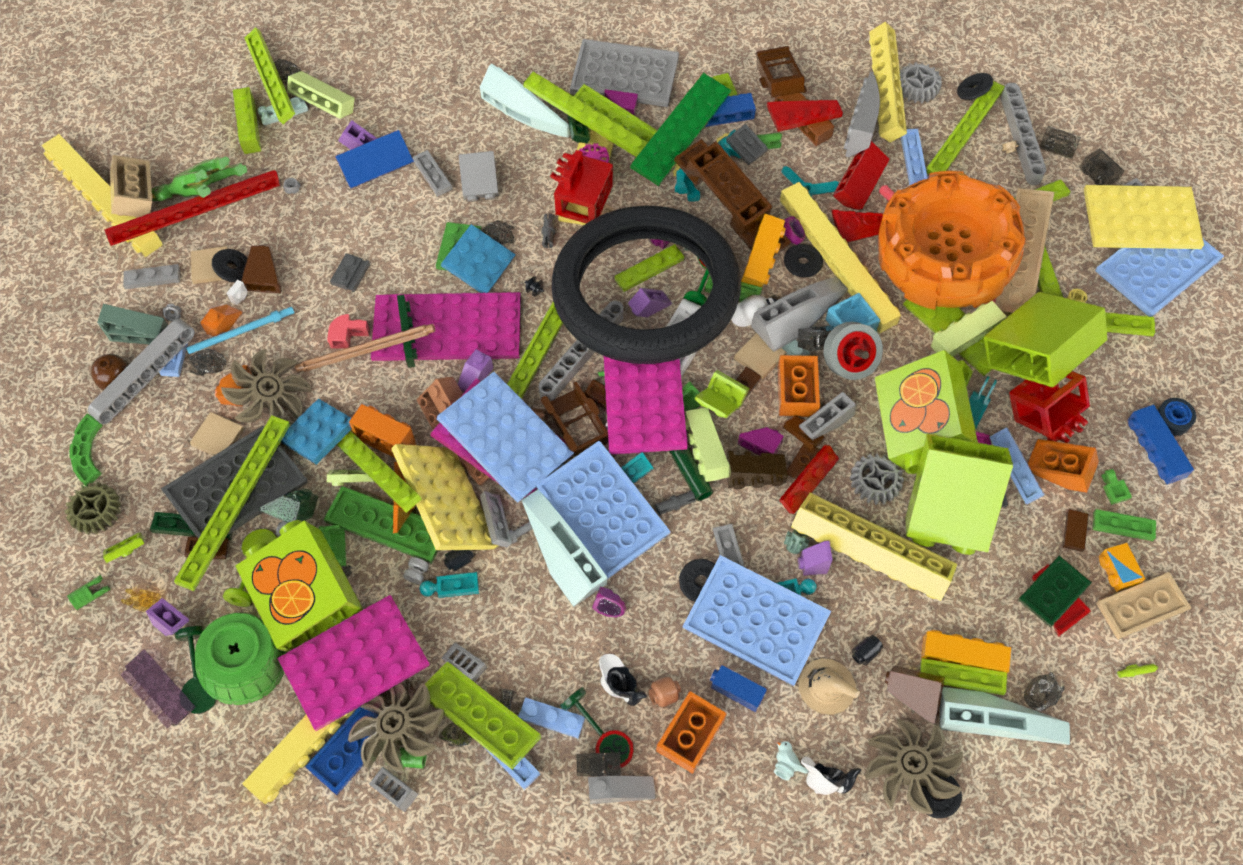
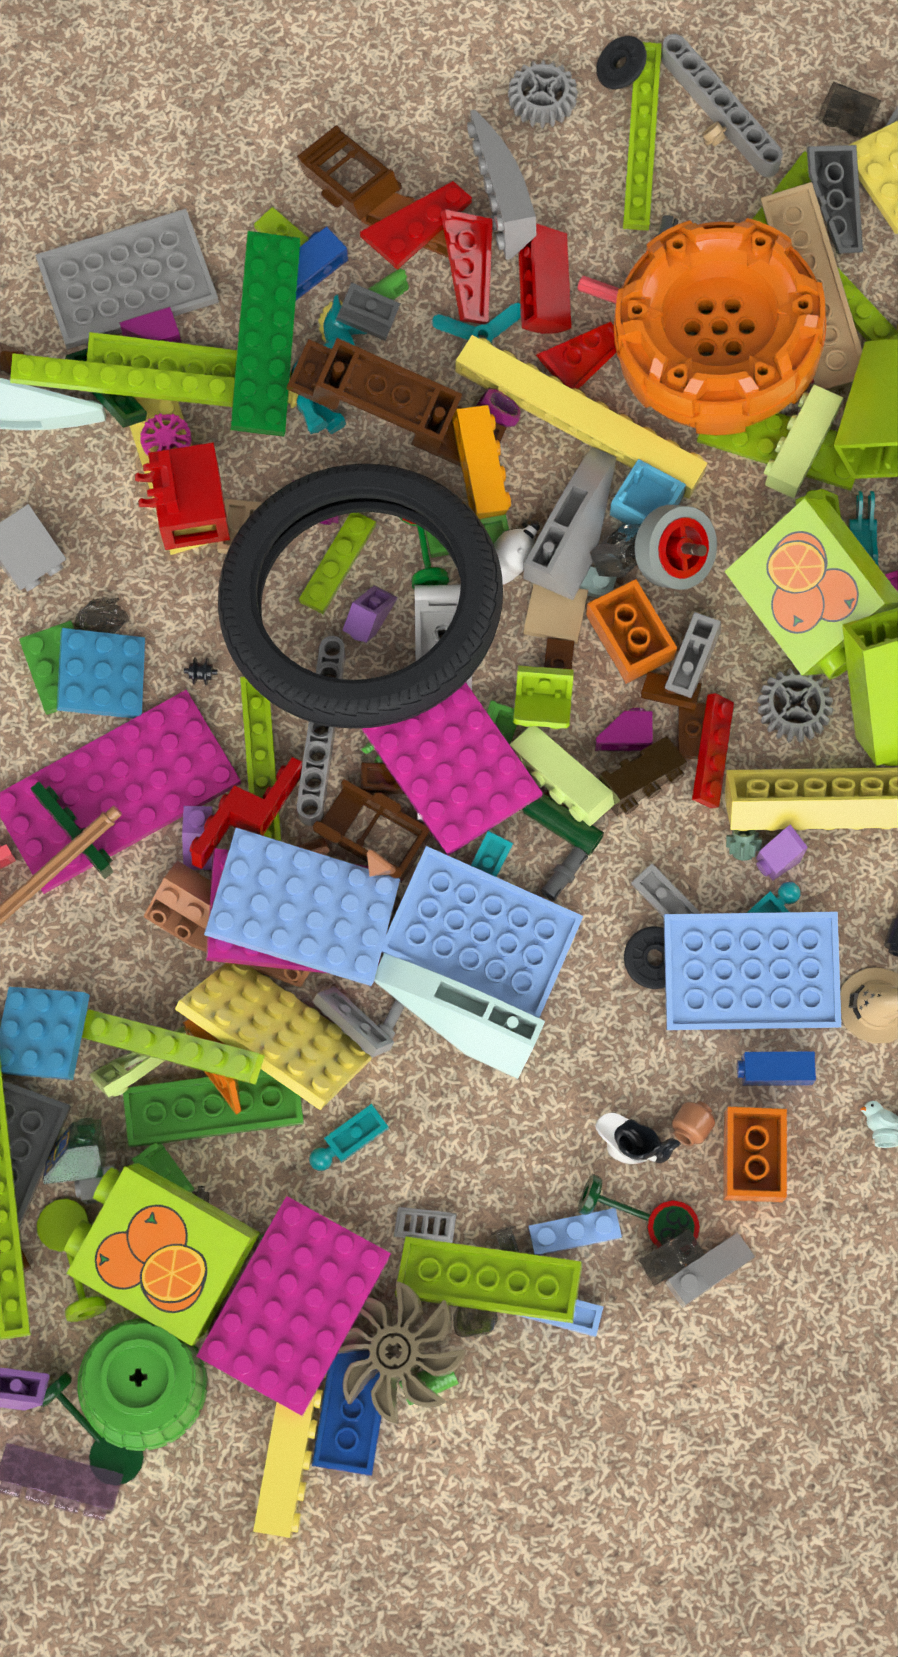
camera: 30 degrees left, 10 degrees up
(380, 430) = (133, 987): orange brick -> none
(403, 798) = (462, 1430): light grey slope -> none
(416, 570) = (292, 1145): light grey wheel -> none
(457, 559) = (338, 1104): black brick -> none
(507, 368) = (245, 812): none -> red bracket
(548, 231) = (168, 578): dark grey pin -> none
(563, 436) = (378, 865): none -> nougat slope
(608, 603) = (559, 1051): magenta rock -> none
(809, 269) = (535, 460): black wheel -> none
(823, 143) = (469, 255): none -> wing
(886, 71) = (495, 103): light yellow brick -> none
(913, 156) = (598, 215): light blue plate -> none
(1060, 142) = (775, 93): clear smoke bracket -> none
(1068, 204) = (836, 185): none -> dark grey wedge

